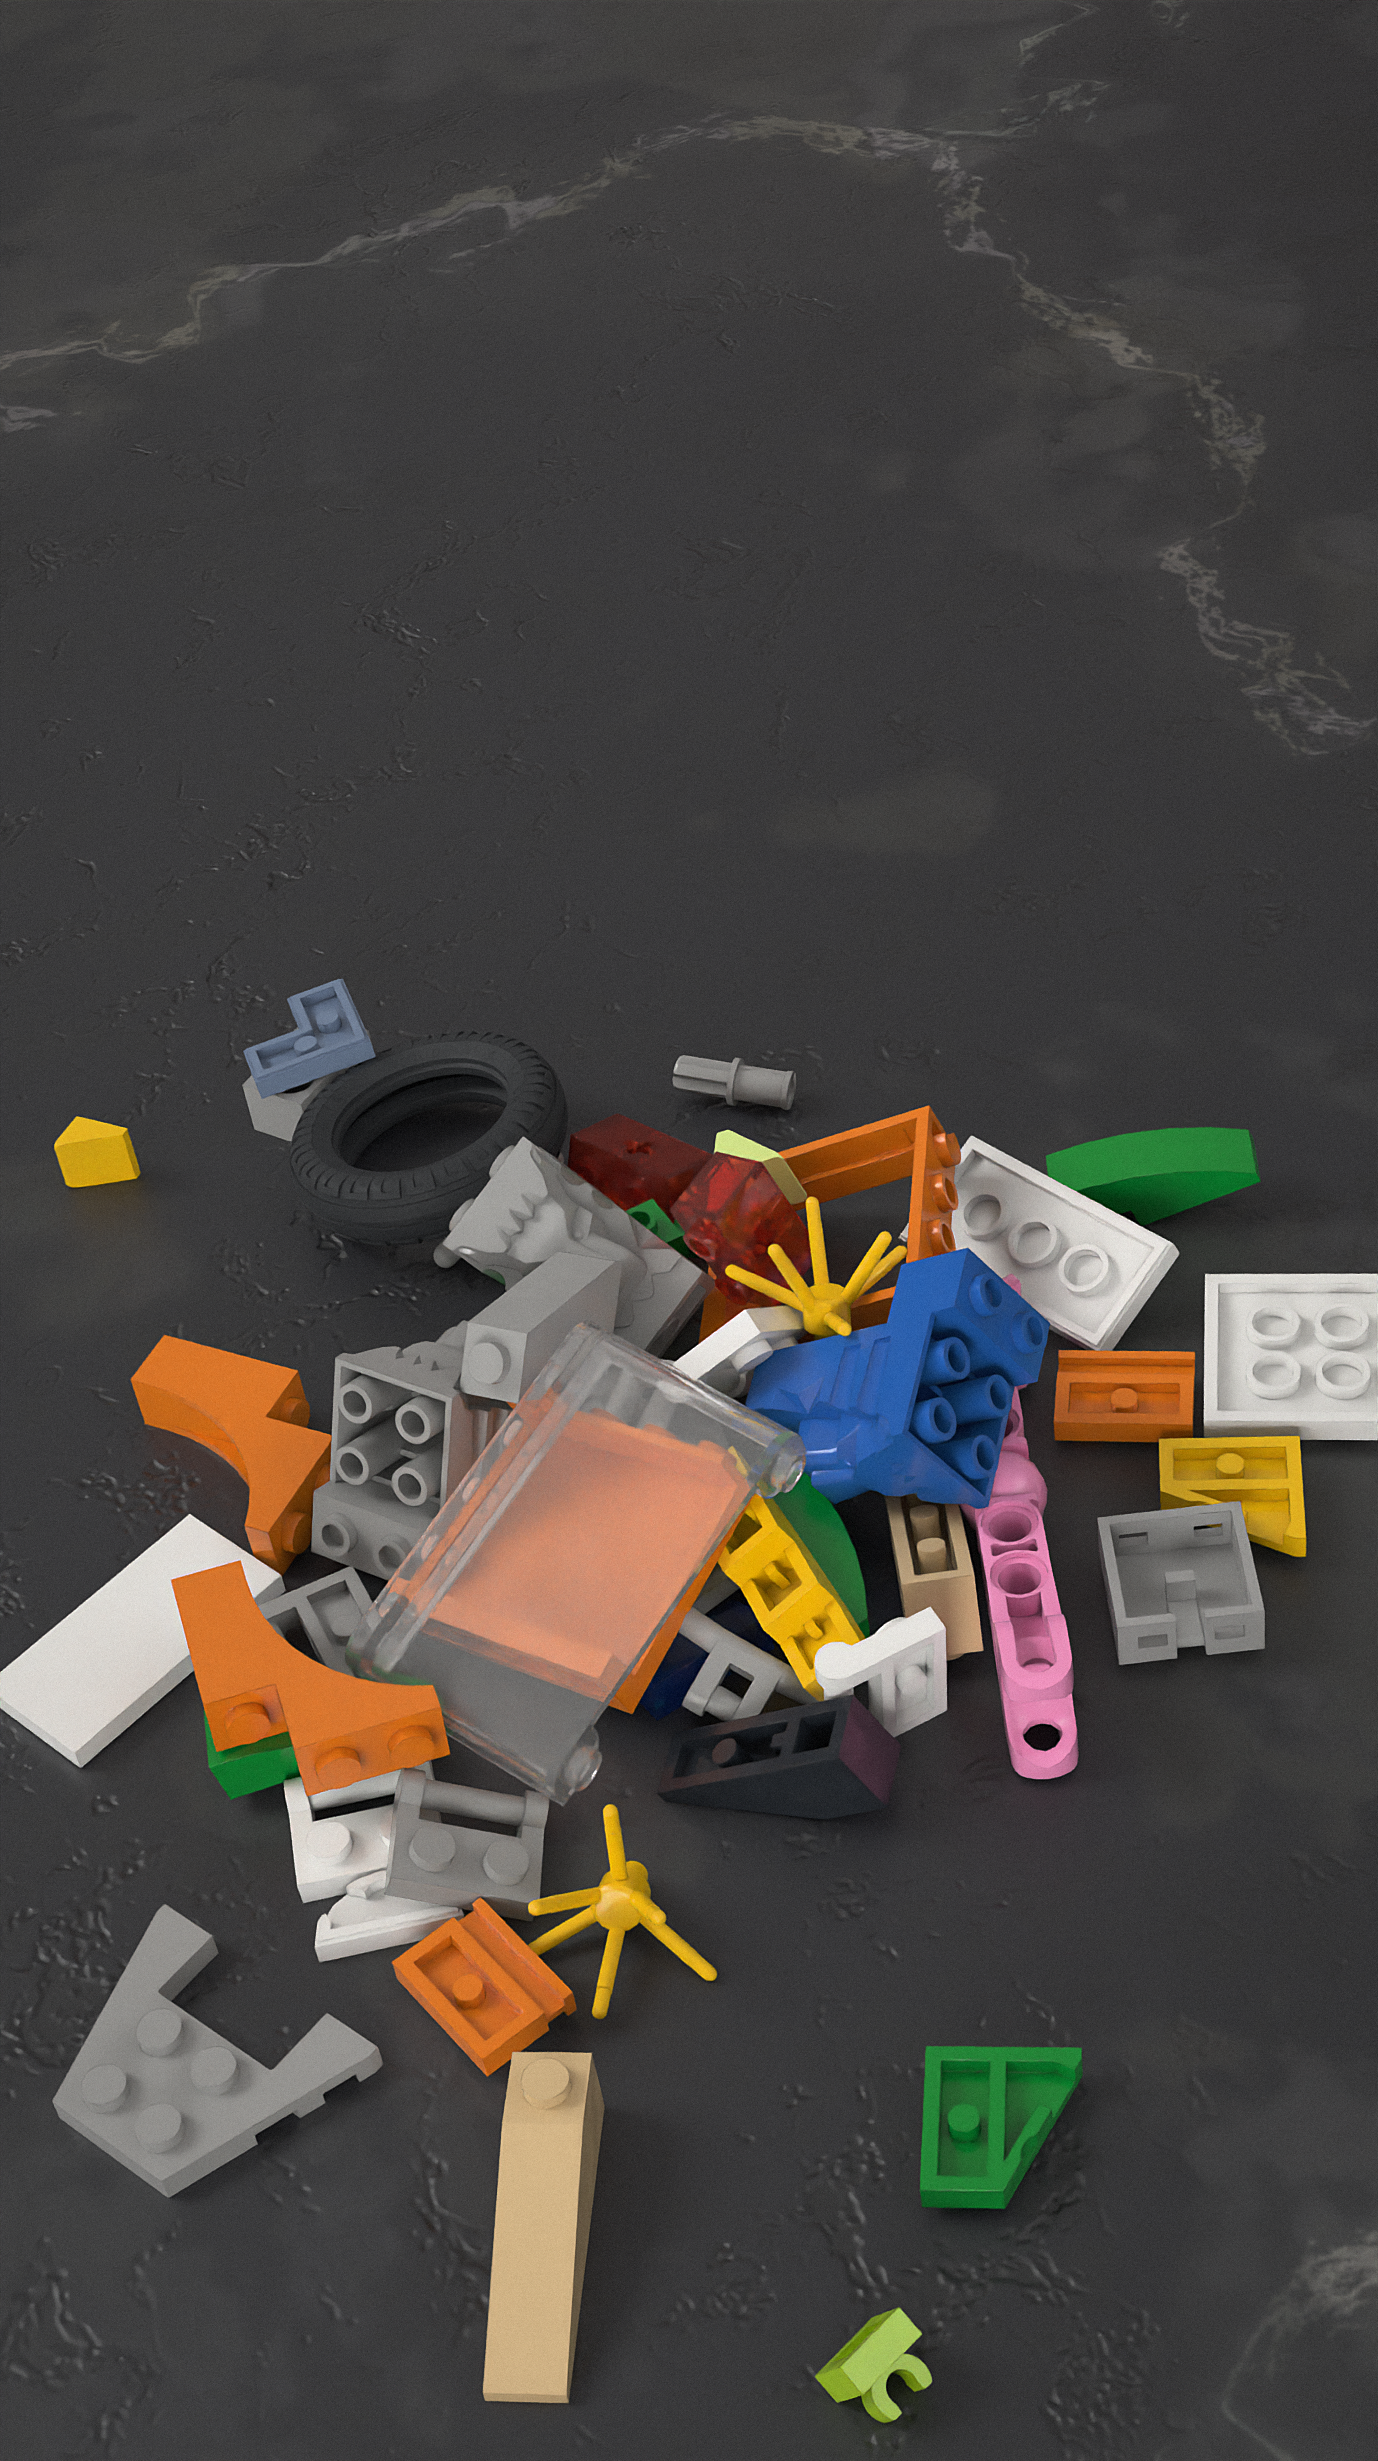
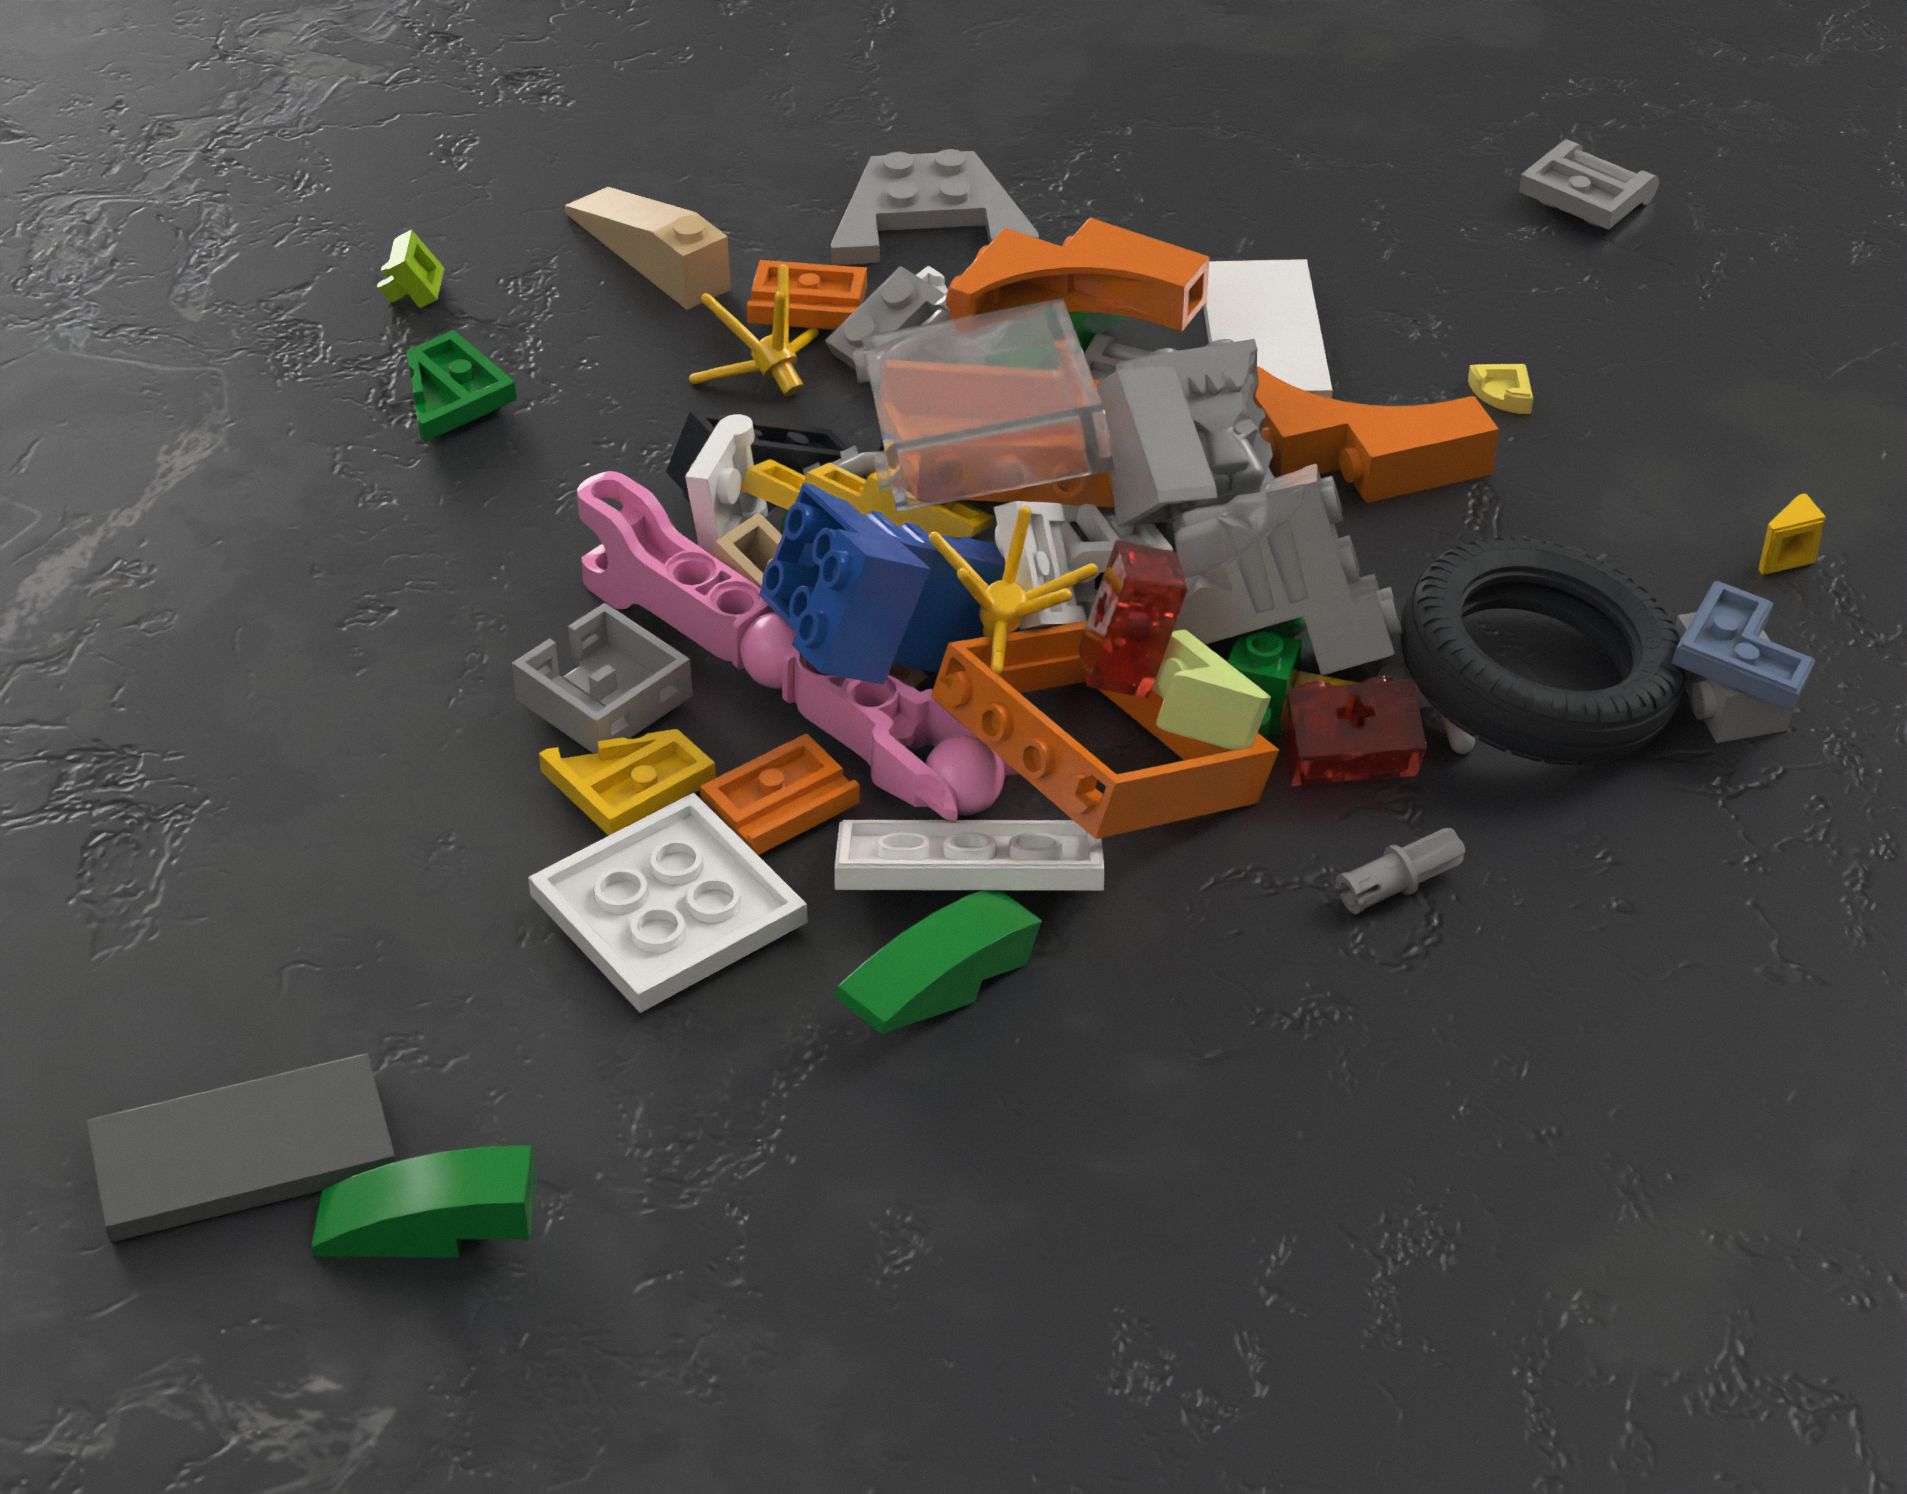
camera: 130 degrees right, 0 degrees up
(43, 1444) = (1502, 386): none -> light yellow tile

